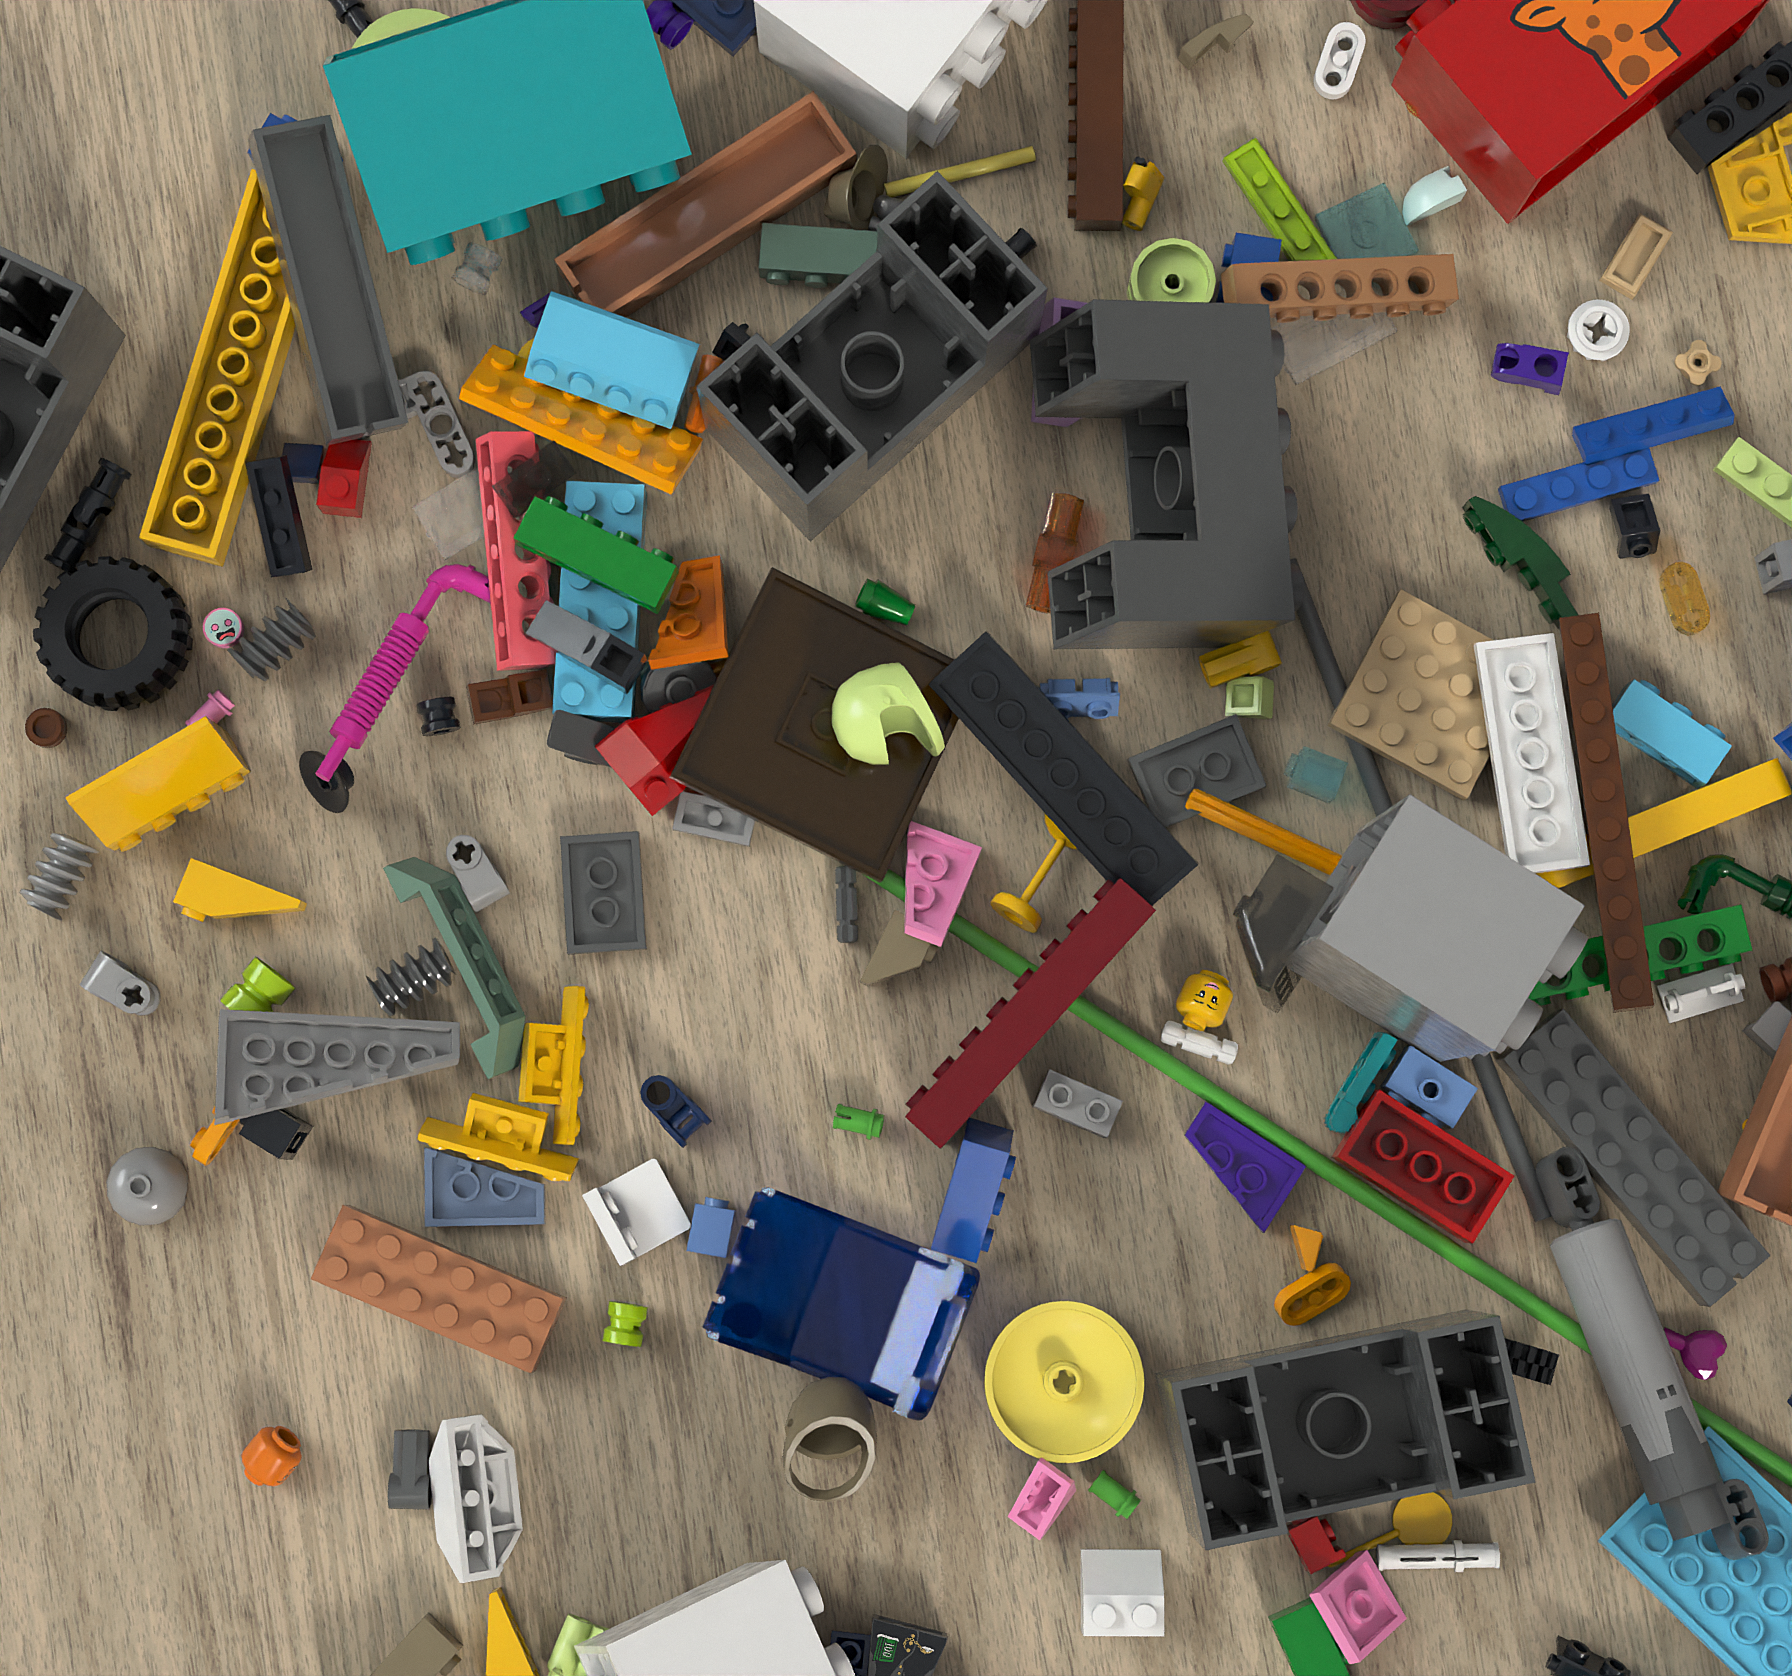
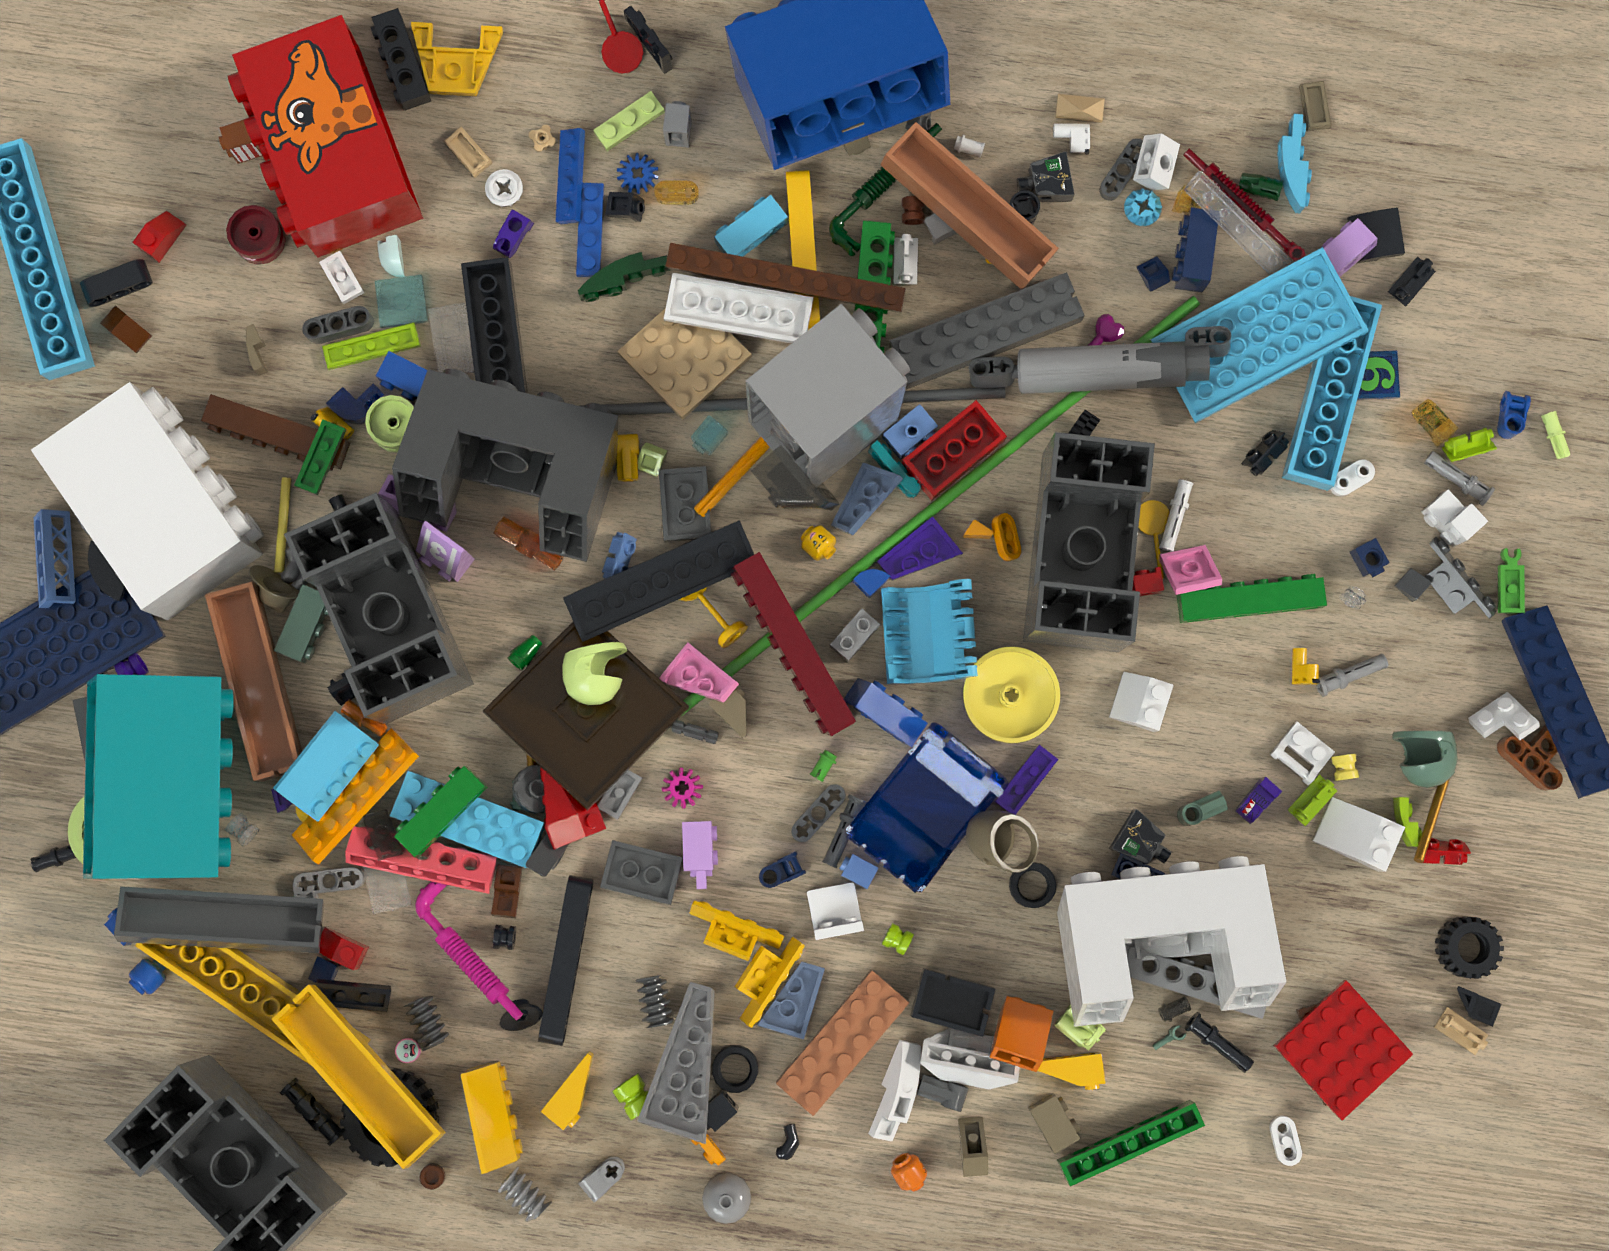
camera: 70 degrees left, 0 degrees up
(156, 565) = (358, 1076): none -> yellow piece
(213, 203) = (147, 976): none -> blue head
(214, 708) = (455, 1070): bright pink pin -> none
(260, 1259) = (791, 1144): none -> black arm
(320, 1122) = (735, 1087): none -> black tyre
(341, 1545) = (973, 1146): none -> dark tan slope
(400, 1402) = (901, 1088): none -> white slope
(432, 821) = (565, 960): none -> black beam
(473, 955) = (654, 960): sand green slope -> none
(479, 877) = (608, 942): light grey piece -> none
(538, 1566) = (1021, 1033): none -> orange brick
(553, 1441) = (952, 1002): none -> black piece
(588, 646) = (493, 834): slope -> none
(664, 969) = (698, 850): none -> lavender hinge
(696, 617) = (497, 765): orange wing -> none
(746, 925) = (688, 793): none -> dark pink gear
(746, 1183) = (840, 840): none -> dark grey pin
(751, 1133) = (826, 796): none -> dark grey beam
(758, 1535) = (1043, 900): none -> black tyre
(938, 1448) = (1026, 780): none -> dark purple plate
(995, 426) = (442, 552): none -> lavender slope
(1042, 1499) = (1074, 729): bright pink slope -> none
(1080, 191) = (320, 457): none -> green plate
(1115, 1495) = (1084, 687): bright green pin -> none
(1118, 1218) = (927, 633): none -> medium azure hinge
(1171, 1102) = (871, 581): none -> blue brick
(1172, 214) = (352, 409): none -> clear blue brick
(1199, 1042) = (841, 554): white axle -> none
(1296, 132) = (327, 321): none -> dark grey beam
(1300, 1048) = (865, 495): none -> sand blue wing
(1339, 62) = (293, 283): white plate -> none
(1372, 131) = (341, 277): none -> white plate
(1379, 385) = (494, 322): none -> black brick
(1431, 273) = (438, 271): medium nougat brick -> none
(1680, 535) = (637, 183): none -> blue gear

